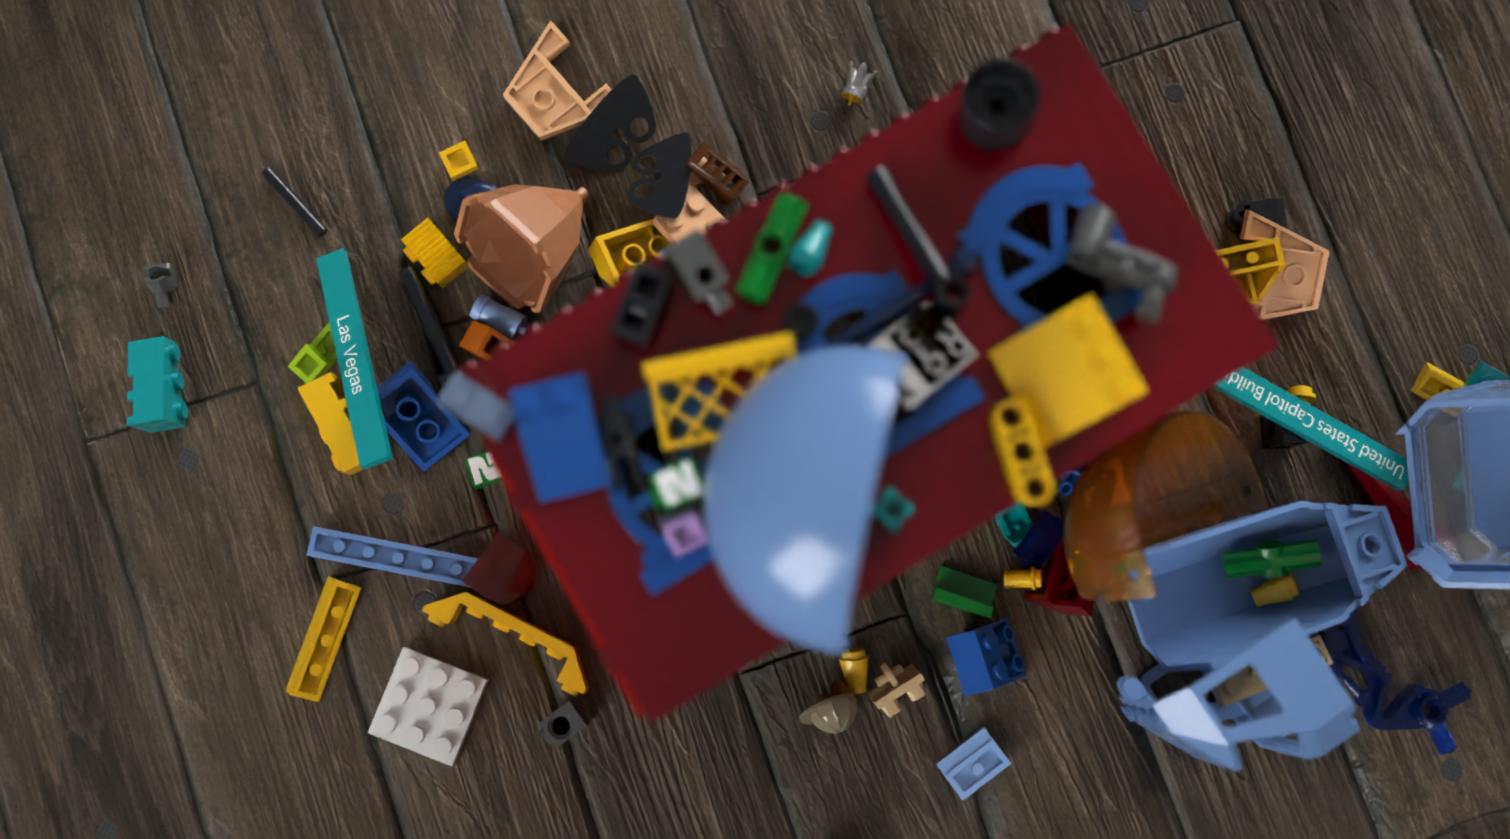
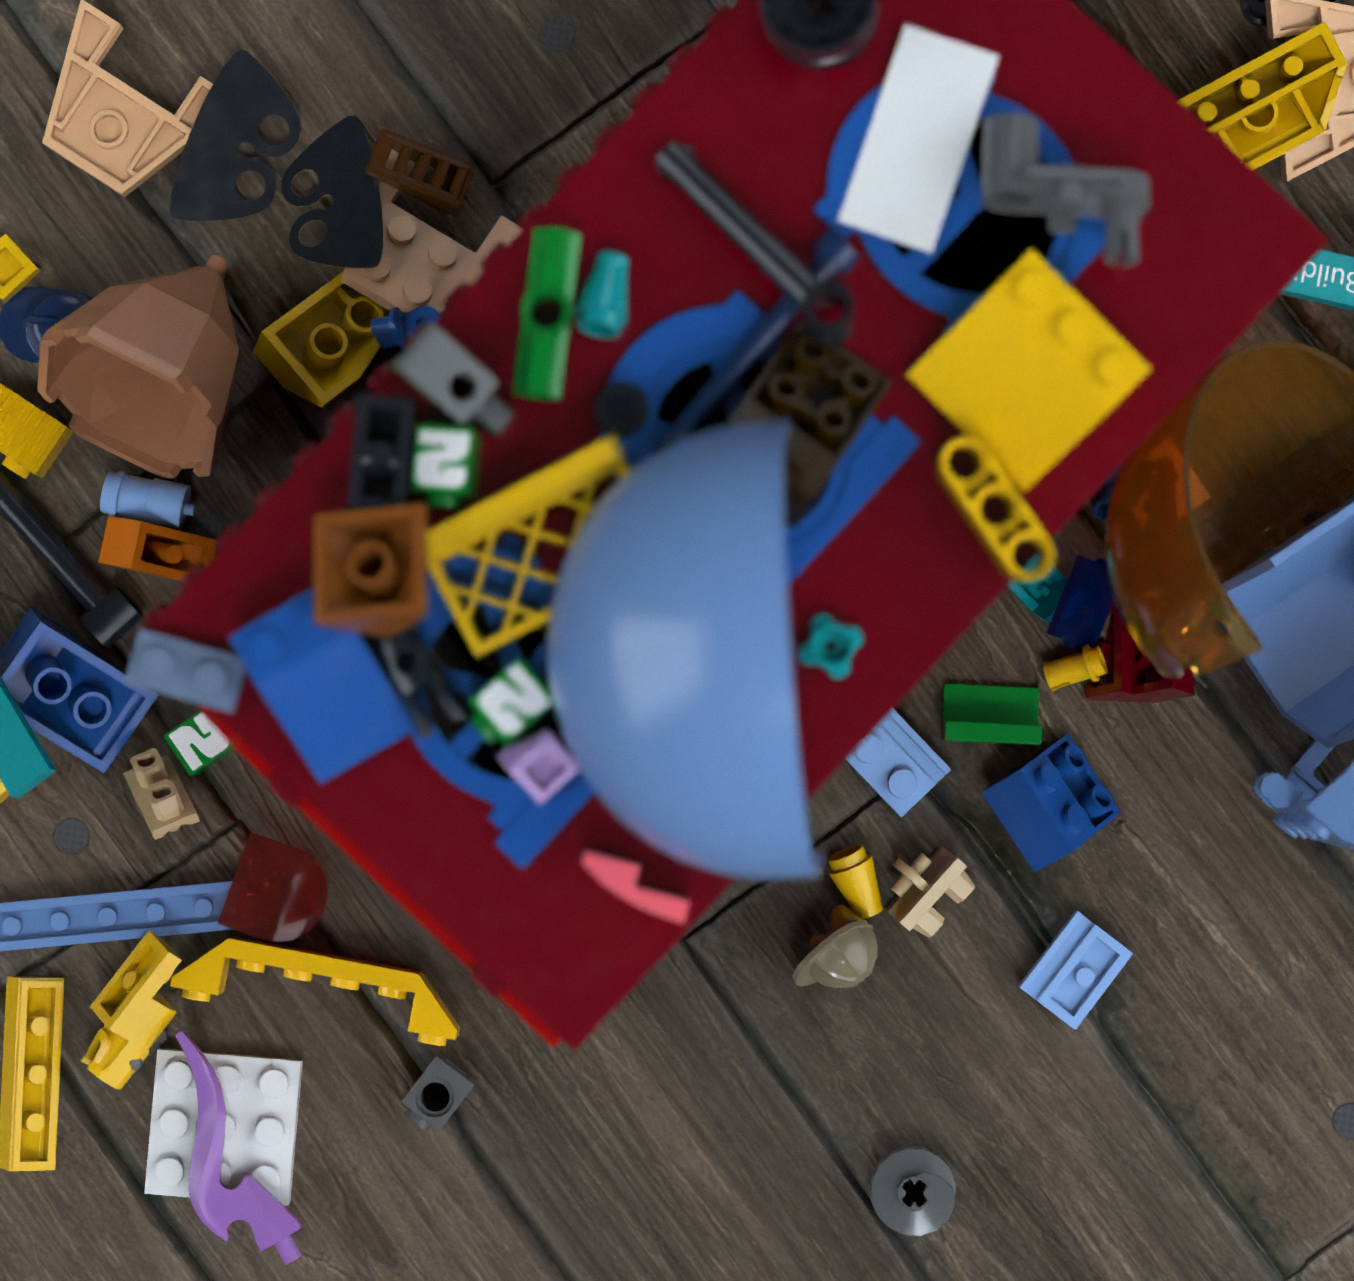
camera: 15 degrees left, 5 degrees up
(394, 620) = (132, 1013): none -> yellow plate
(407, 750) = (213, 1200): none -> medium lavender piece
(452, 492) = (159, 793): none -> tan hips
(612, 373) = (371, 569): none -> dark orange slope
(680, 323) = (446, 465): none -> brick
(714, 619) = (621, 877): none -> coral slope
(899, 605) = (898, 764): none -> light blue plate
(1035, 209) = (918, 138): none -> white sticker

